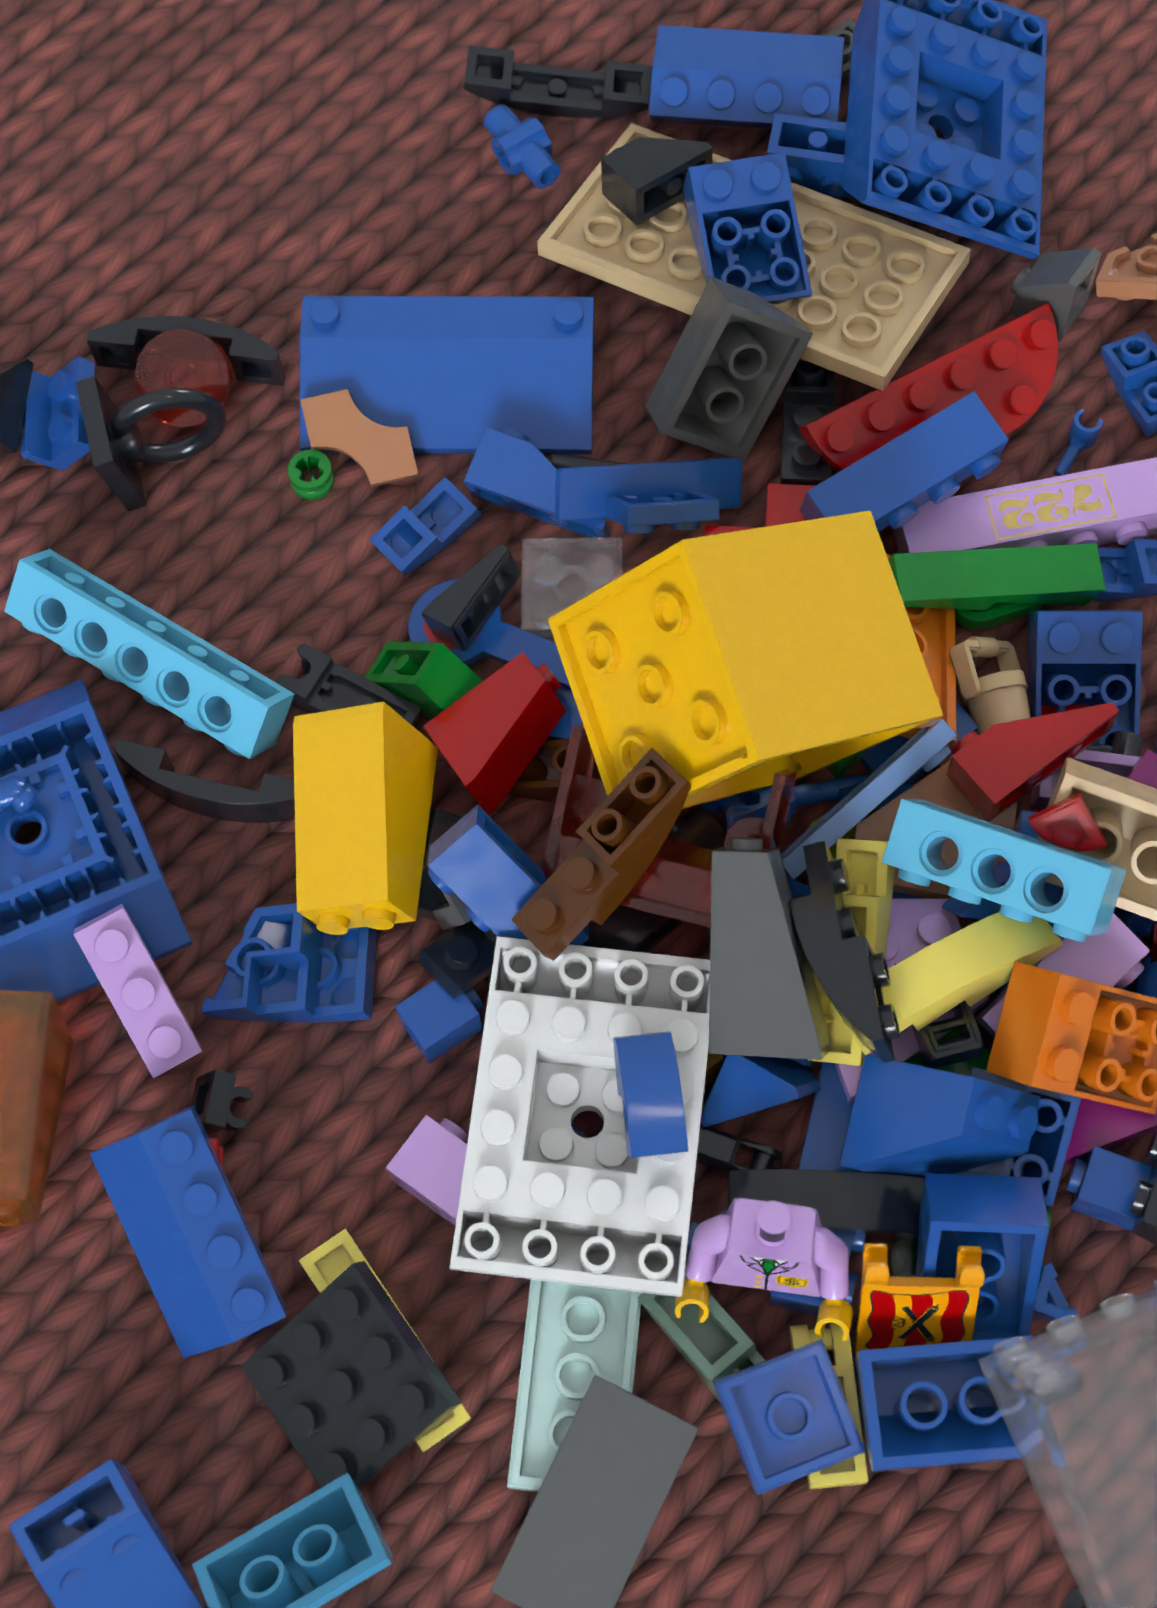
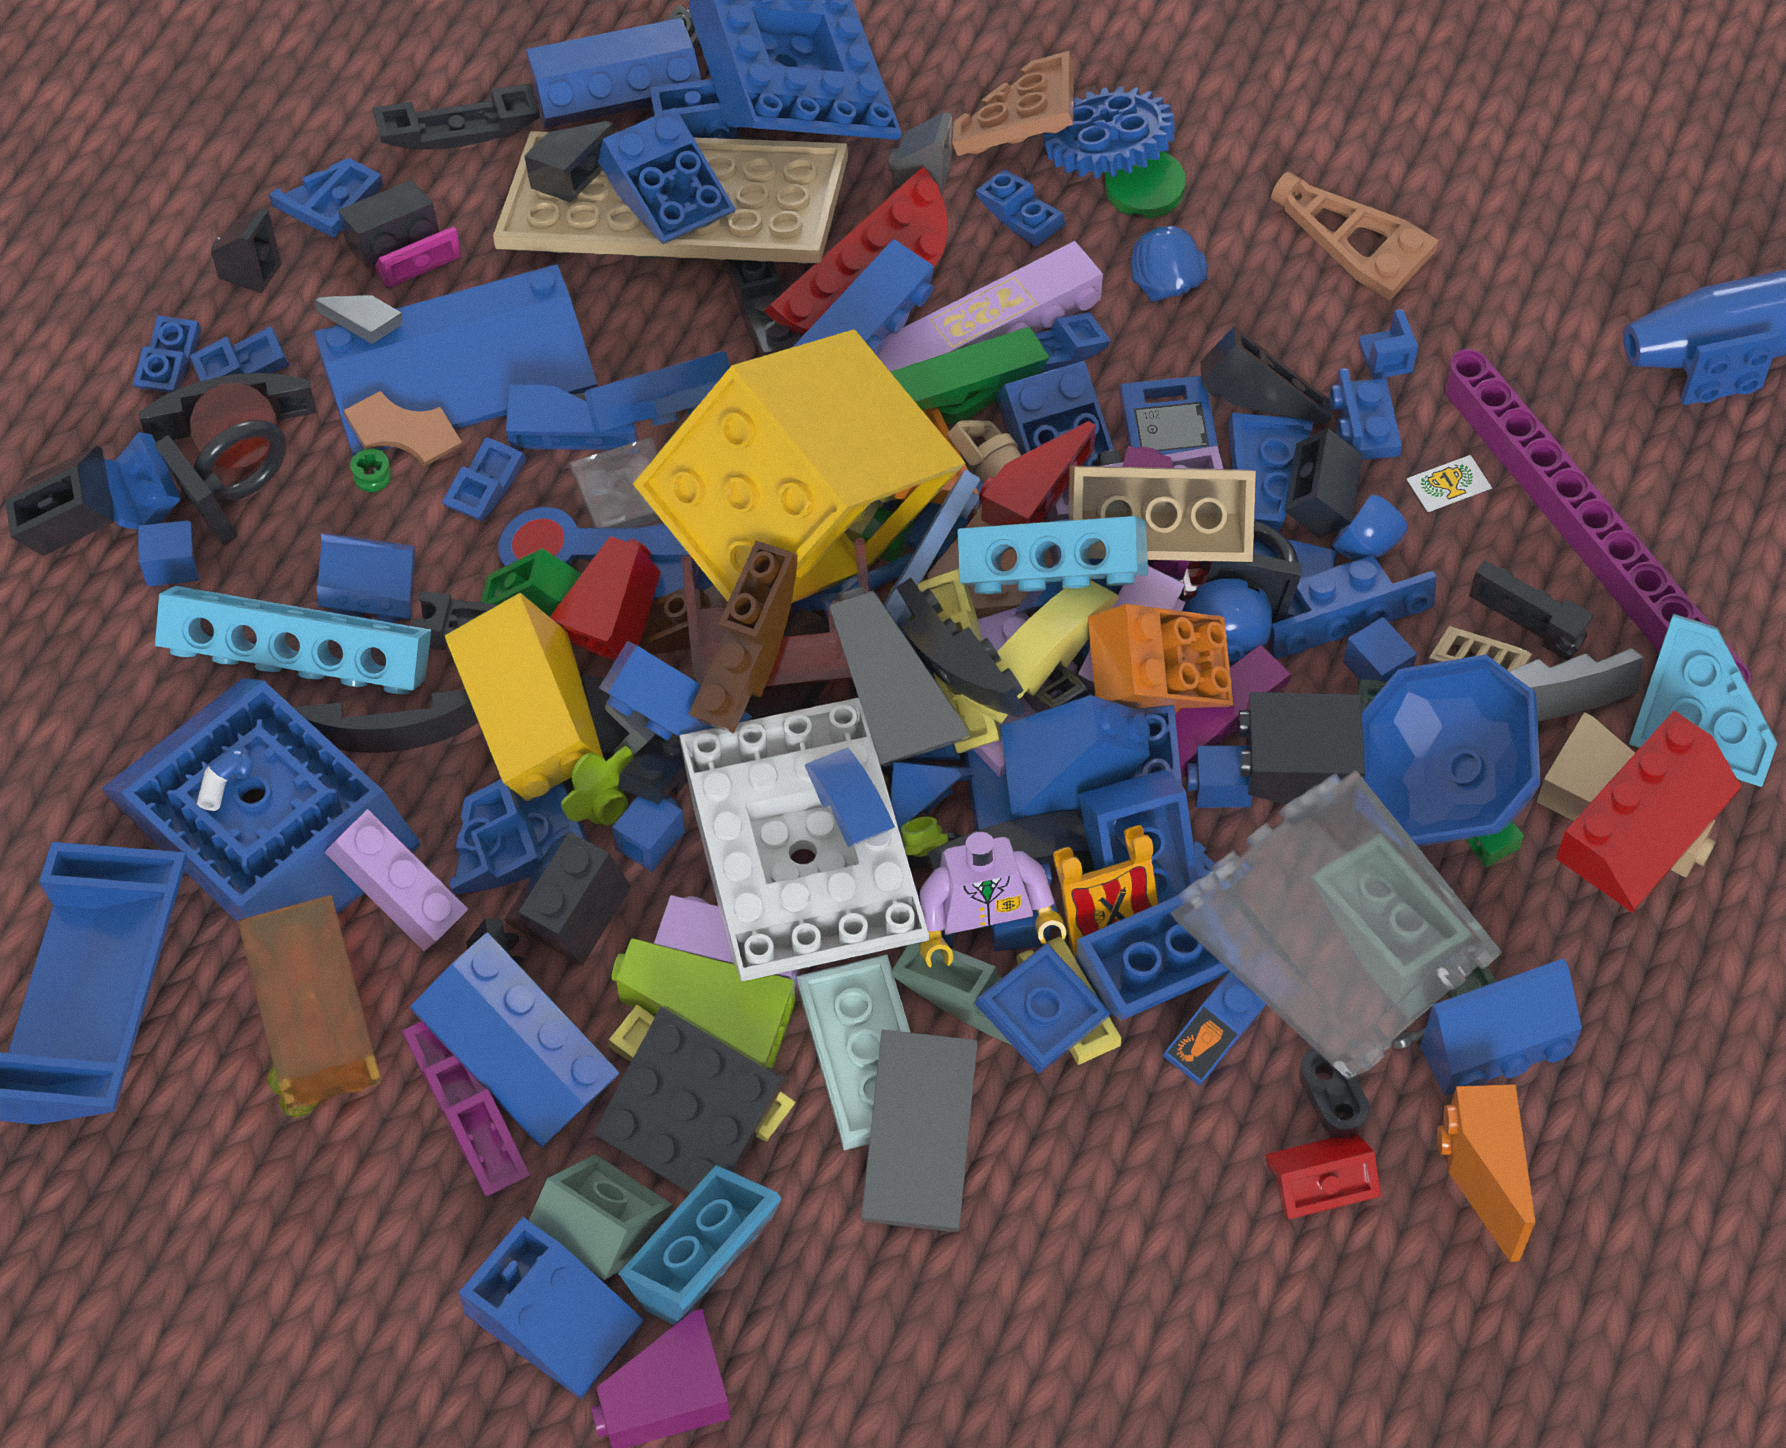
camera: 25 degrees left, 10 degrees down
(58, 504) = (167, 553): none -> blue panel
(117, 1299) = (468, 1113): none -> magenta slope
(151, 275) = (168, 356): none -> blue slope
(206, 1471) = (599, 1214): none -> sand green slope
(227, 301) = (252, 355): none -> blue slope
(254, 602) = (366, 577): none -> blue slope
(276, 177) = (247, 252): none -> black slope
(312, 1079) = (570, 897): none -> black slope
(356, 294) = (360, 315): none -> tile
(391, 134) = (326, 193): none -> blue wing
(396, 951) = (597, 788): none -> lime plate
(413, 1251) = (709, 993): none -> lime slope
(437, 188) = (388, 222): none -> black brick
(456, 238) = (418, 257): none -> dark pink slope
(471, 600) = (549, 514): black slope -> none
(522, 146) = (445, 174): blue axle -> none
(727, 370) = (689, 285): dark grey slope -> none
(731, 1147) = (922, 836): none -> lime plate
(980, 1513) = (1214, 1029): none -> slope
(1069, 825) = (1091, 503): red tile -> none
(1079, 438) = (984, 262): blue hand -> none

